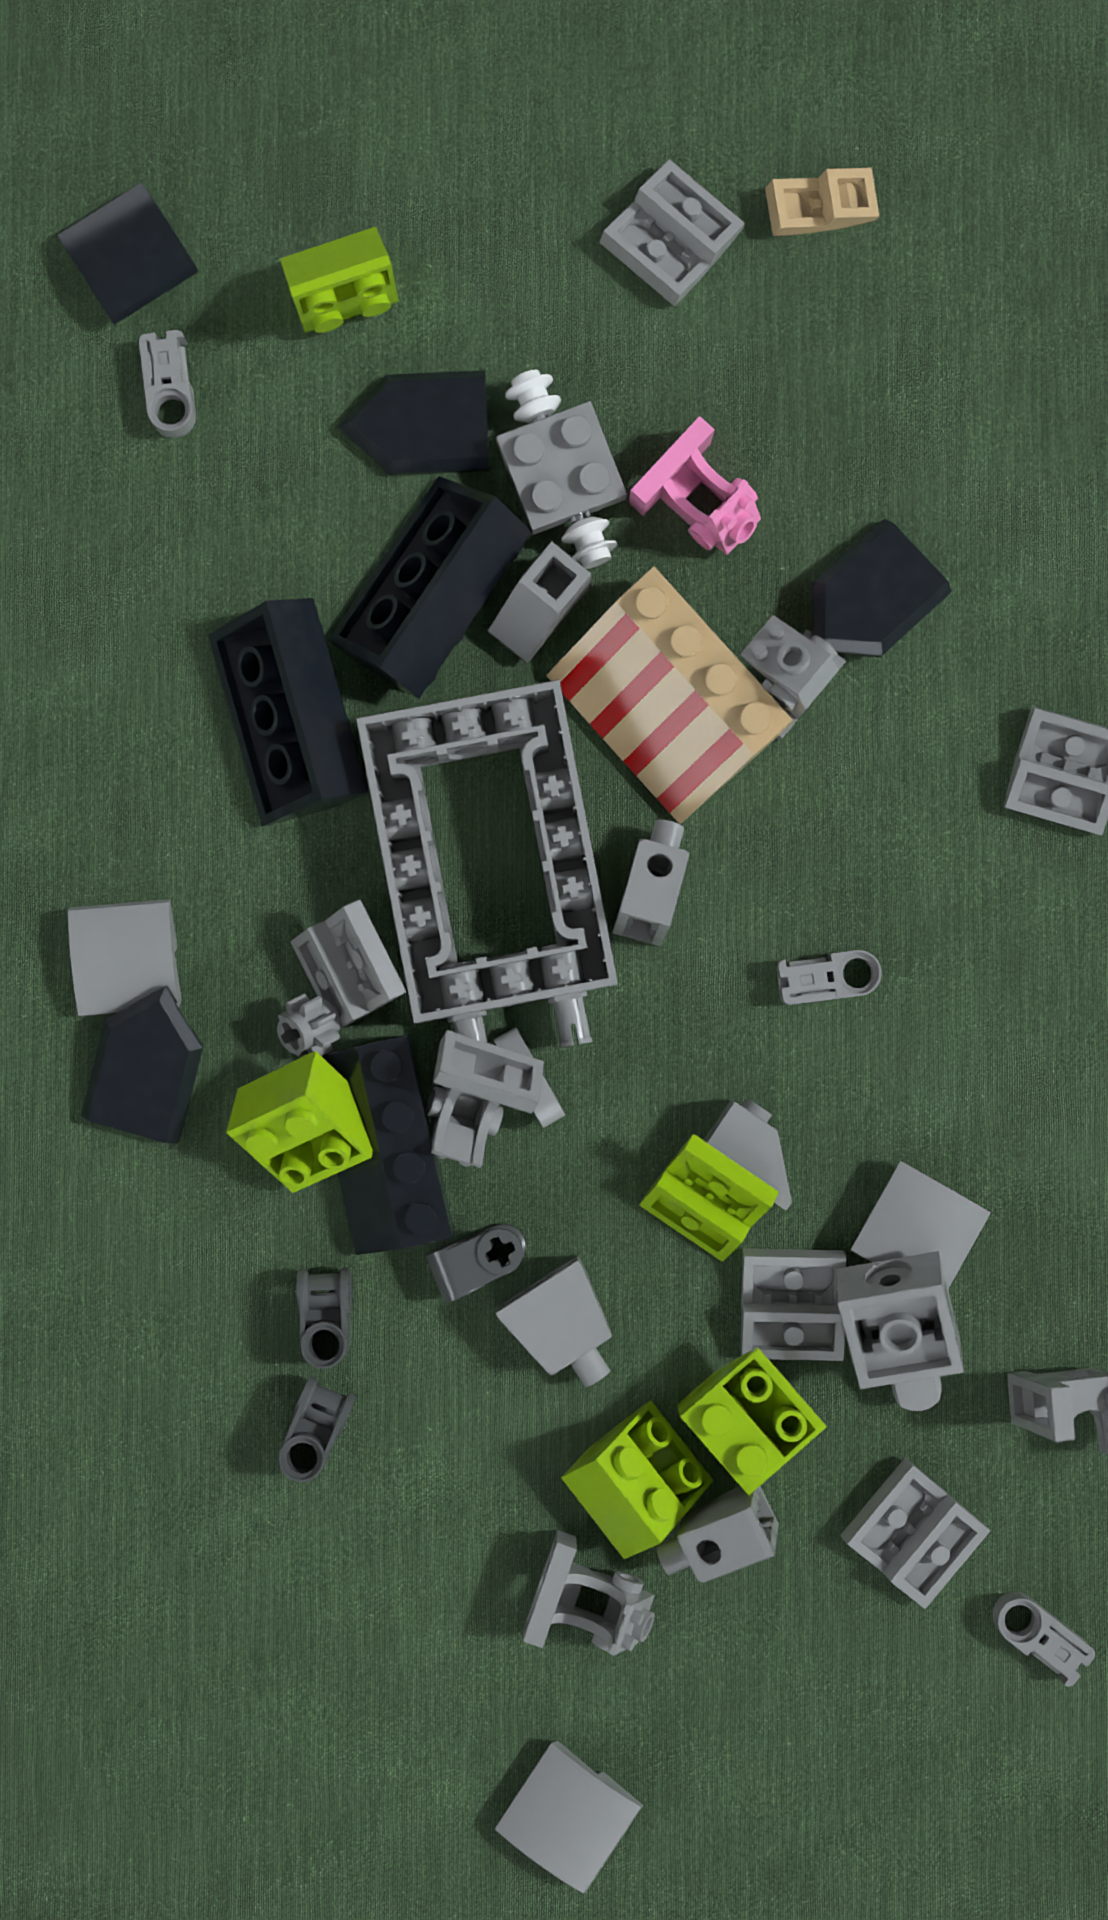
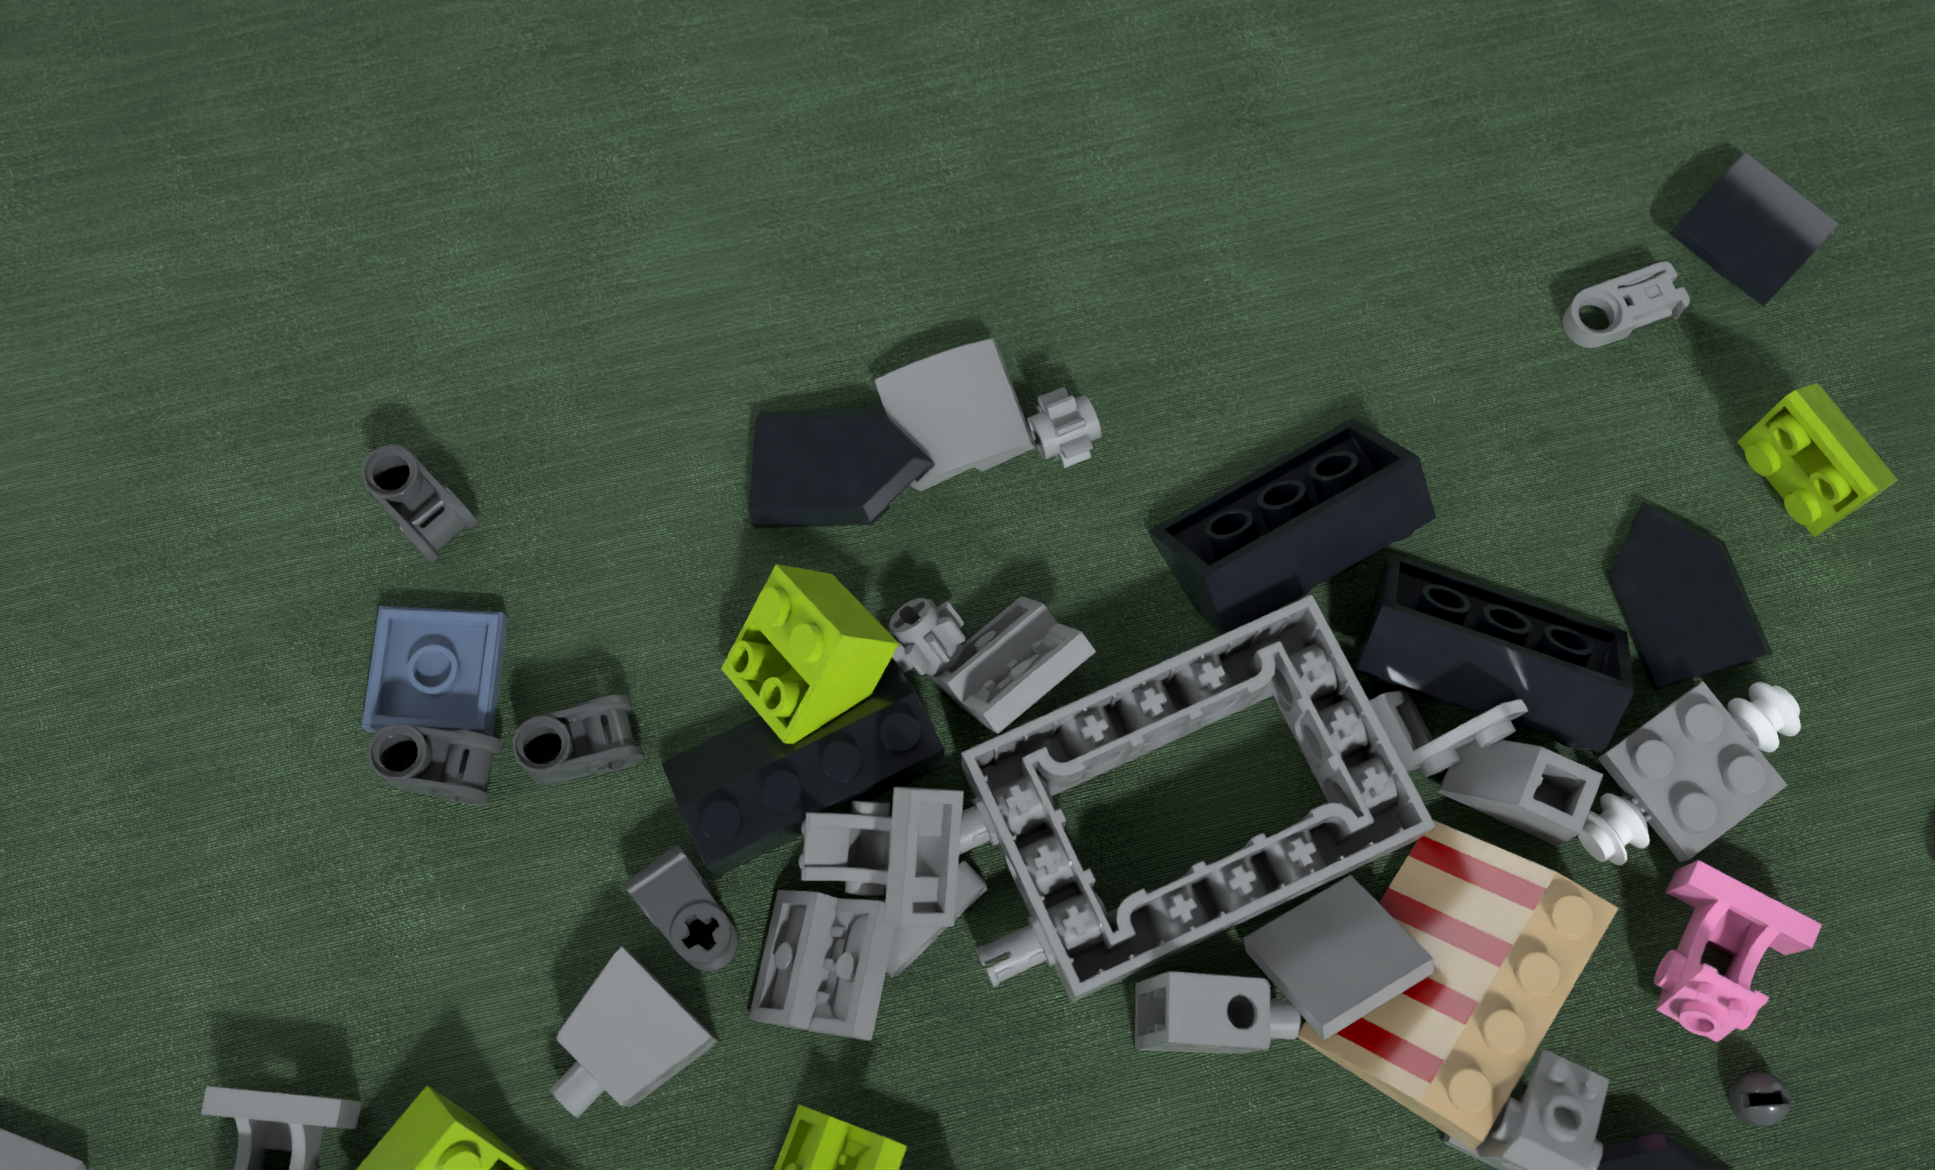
camera: 75 degrees right, 15 degrees down
(99, 1406) = (422, 507): none -> dark grey piece
(160, 872) = (1064, 427): none -> light grey gear
(237, 1419) = (435, 669): none -> sand blue tile
(485, 672) = (1418, 748): none -> light grey bracket
(544, 1164) = (823, 964): none -> light grey slope
(633, 779) = (1338, 956): none -> light grey tile
(797, 497) = (1761, 1083): none -> dark grey hinge

